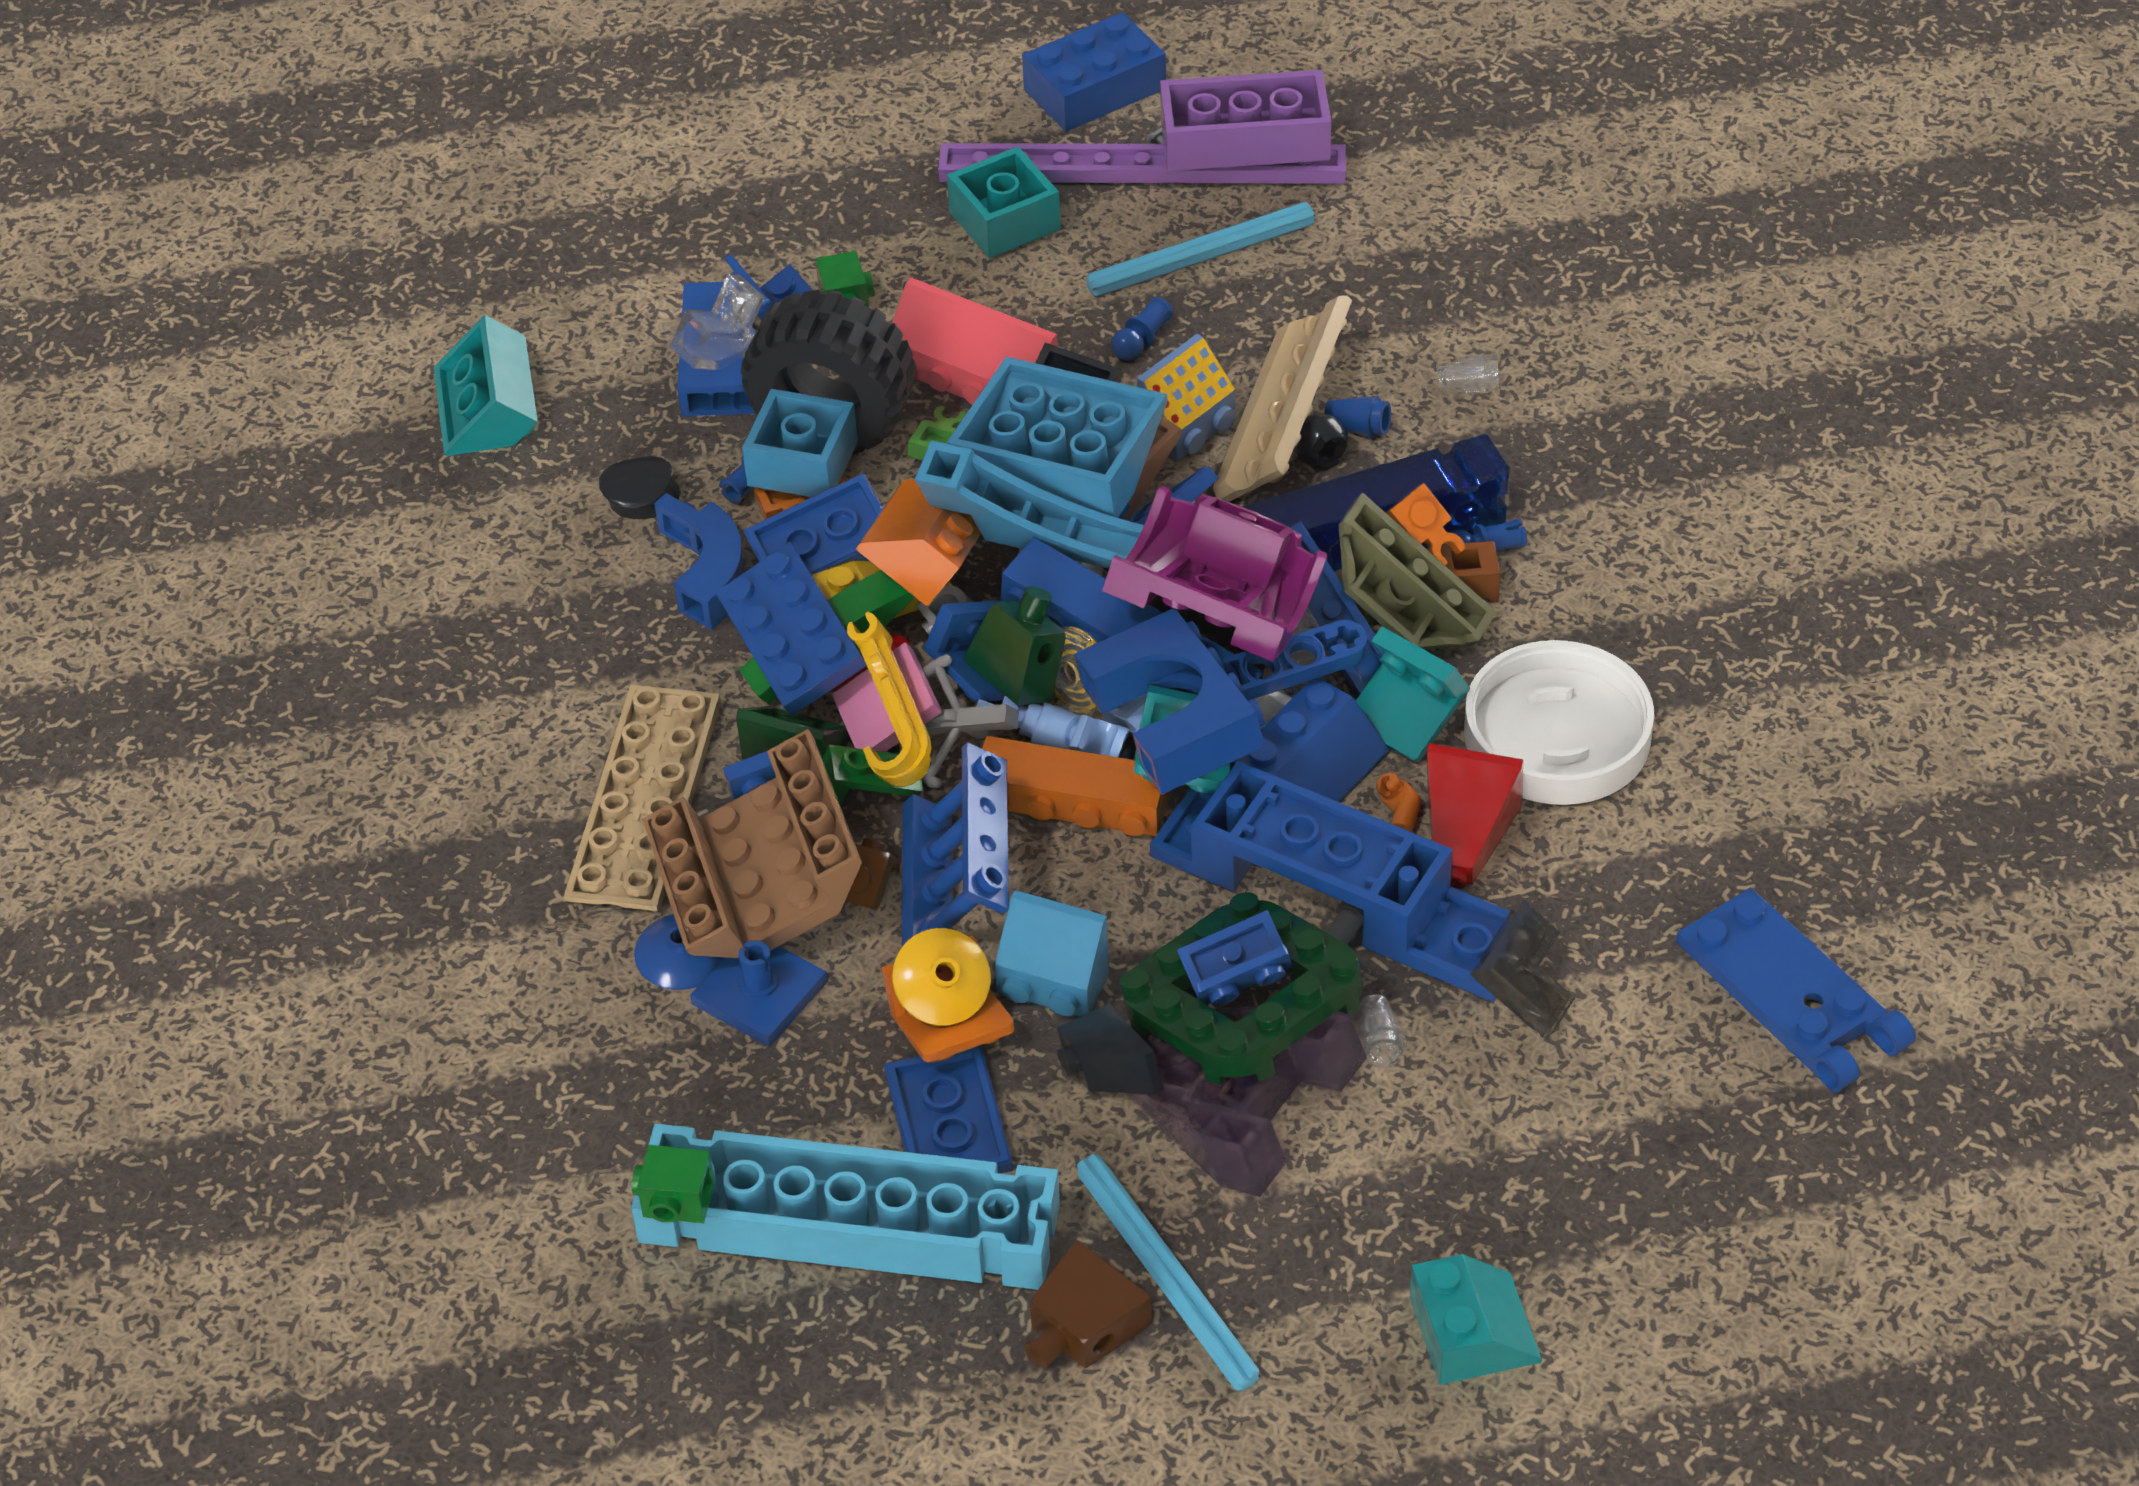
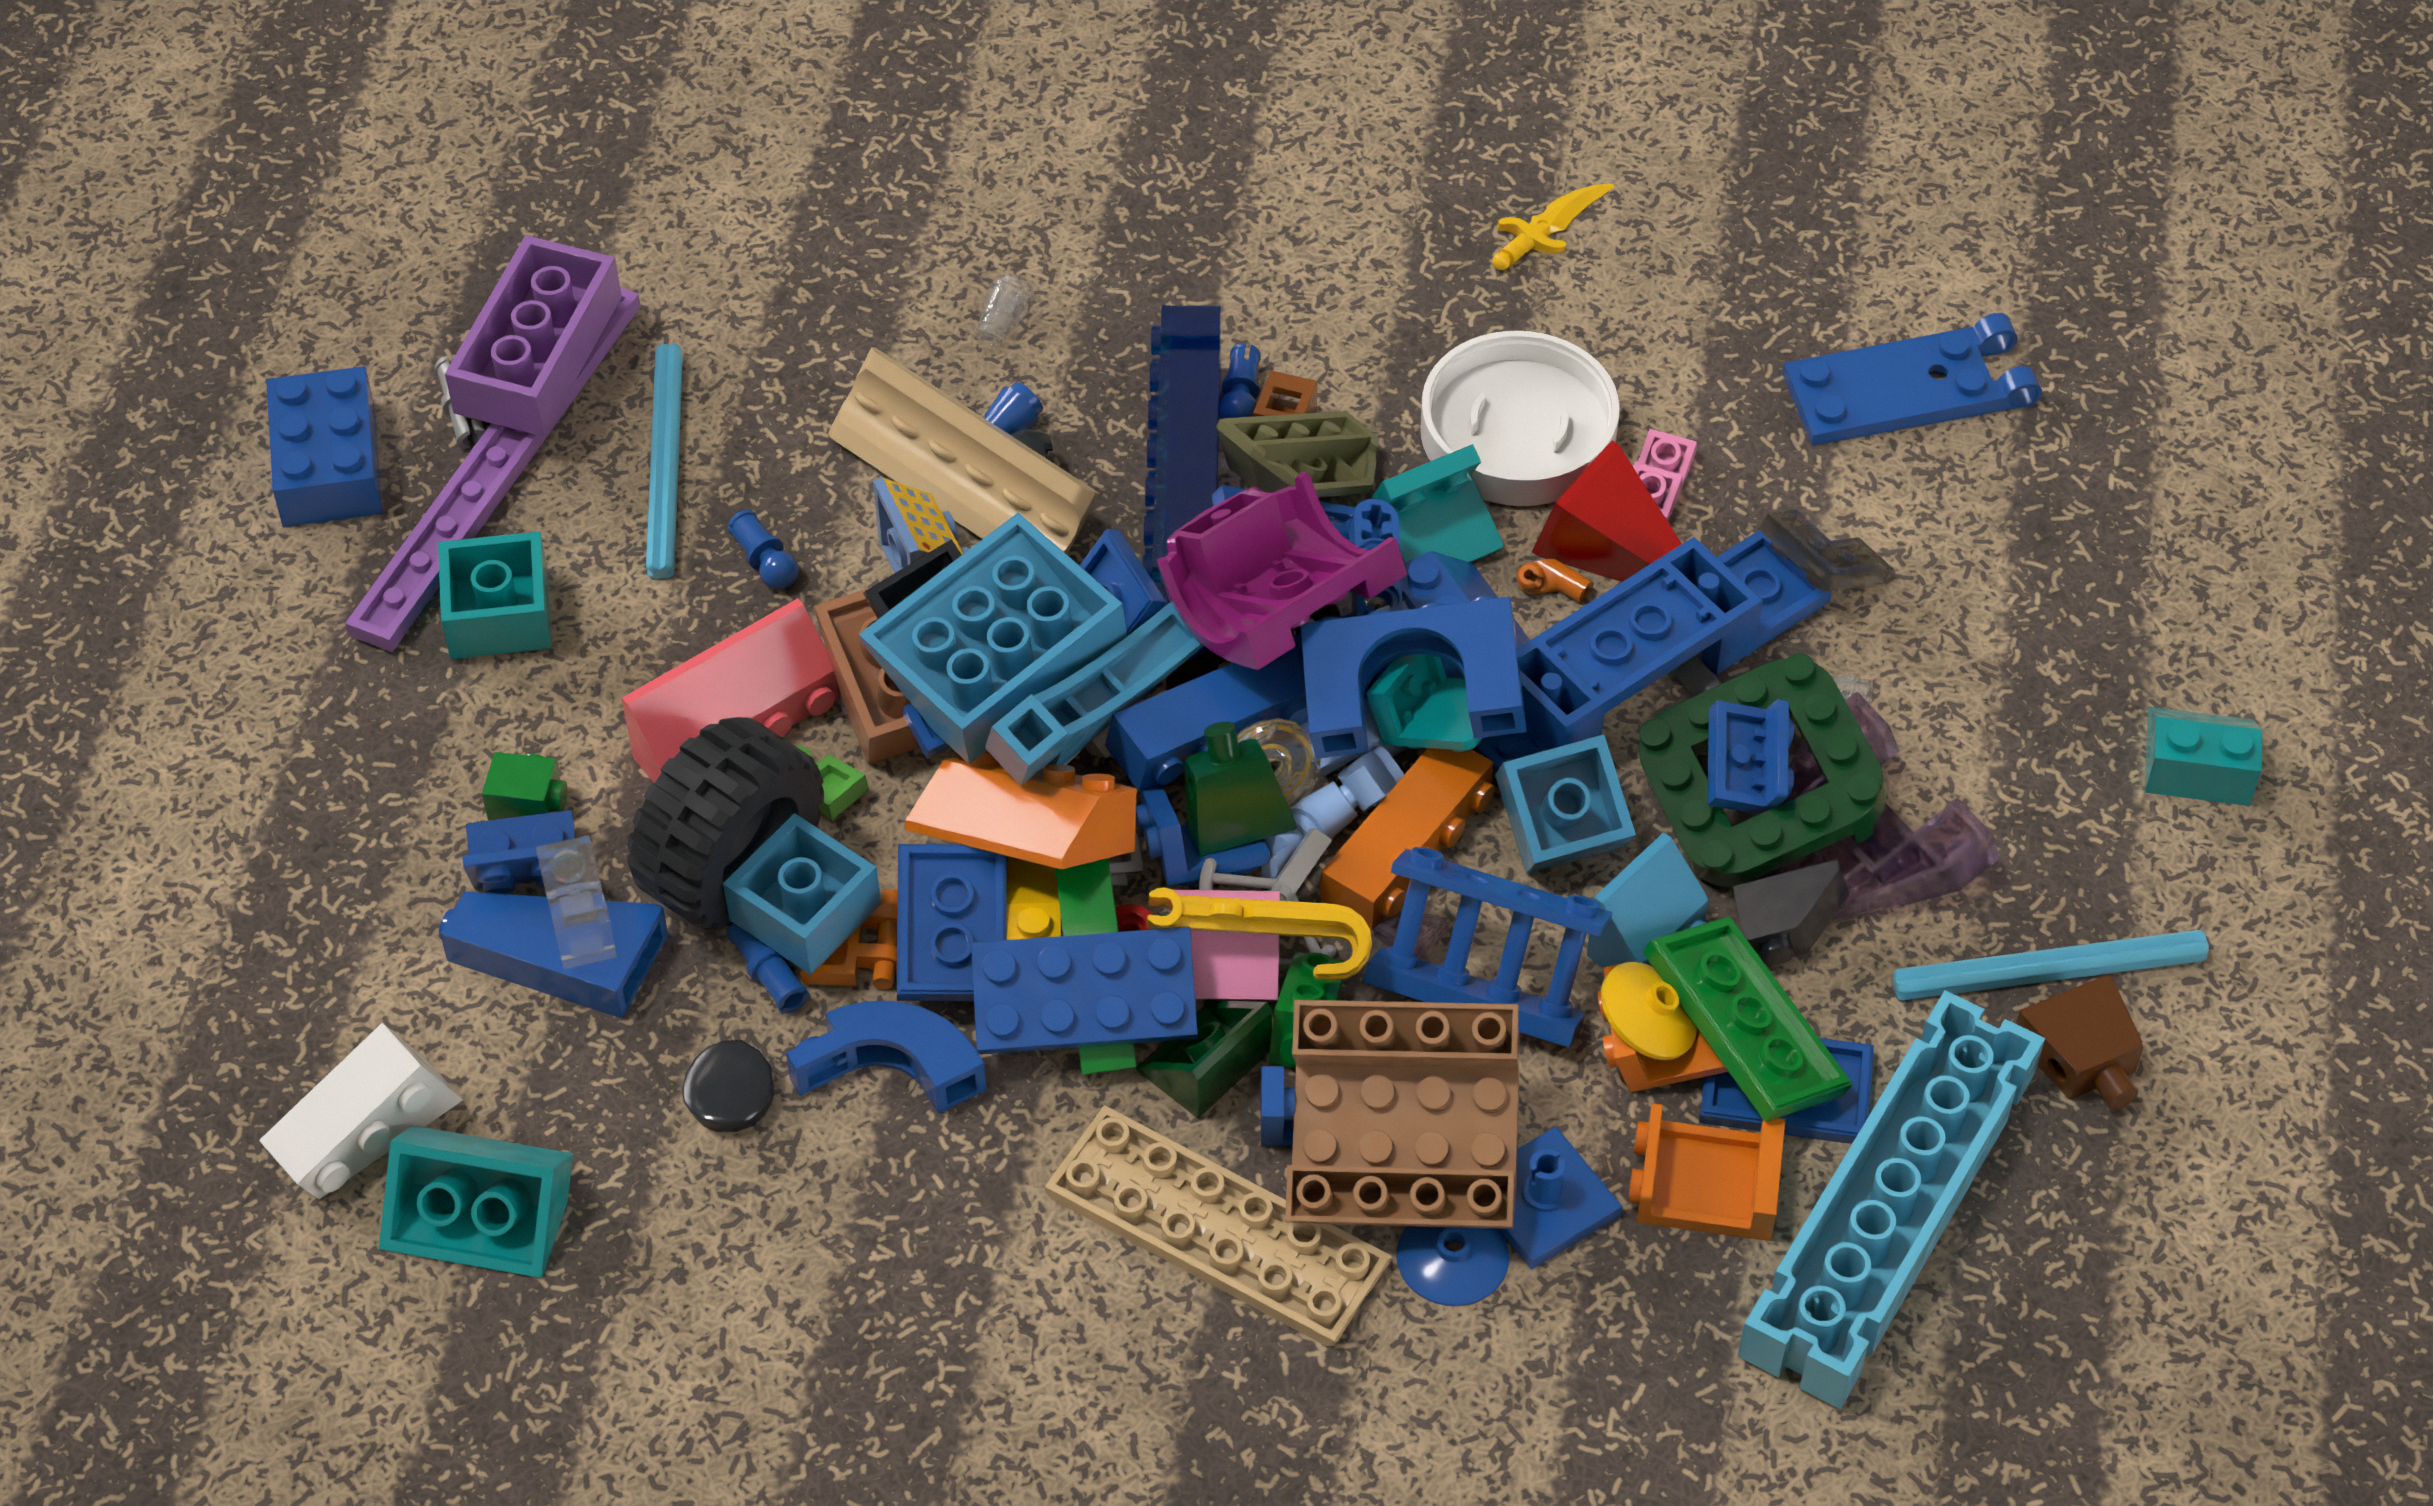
camera: 70 degrees left, 5 degrees up
(531, 300) = (358, 1112): none -> white wedge
(674, 1184) = (1860, 1316): green brick -> none
(824, 1080) = (1708, 1177): none -> orange panel
(971, 1049) = (1747, 1018): none -> green tile
(1135, 866) = (1565, 804): none -> dark azure brick
(1423, 519) = (1245, 396): orange plate -> none
(1546, 842) = (1664, 467): none -> bright pink slope
(1811, 679) = (1553, 219): none -> yellow piece

